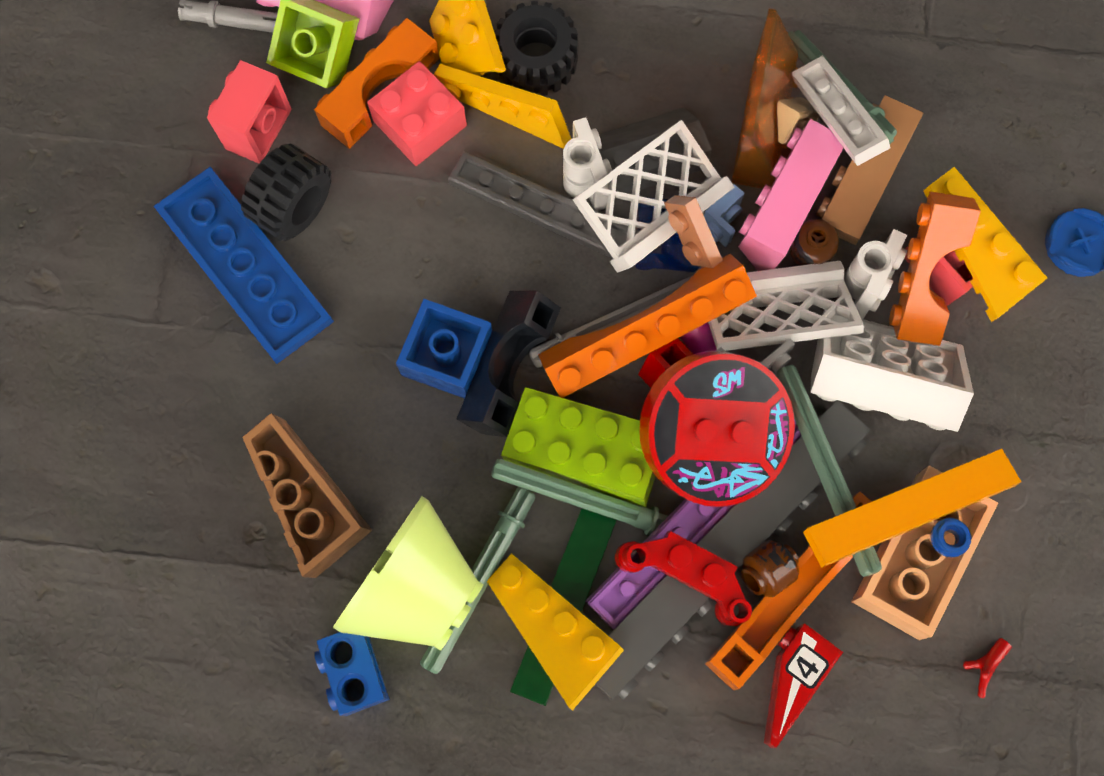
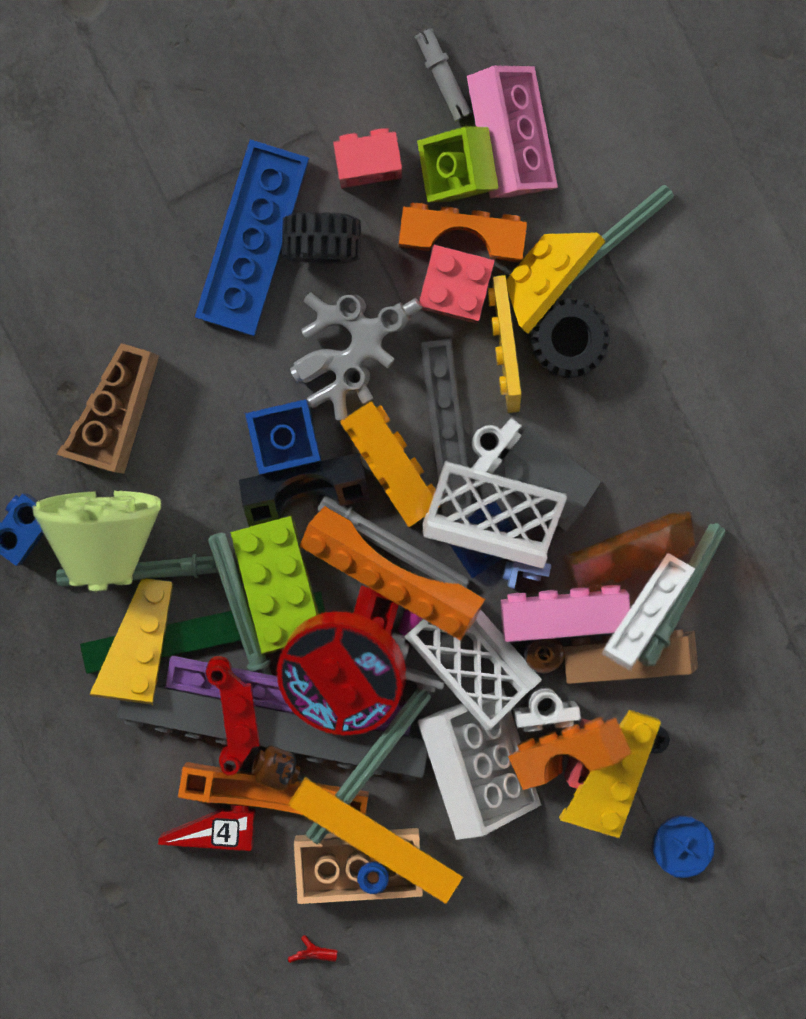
camera: 55 degrees right, 15 degrees up
(412, 219) = (365, 344): none -> light grey plant
(549, 267) = (389, 462): none -> light orange wedge
(690, 224) = (482, 557): nougat plate -> none
(793, 114) = (630, 576): tan slope -> none

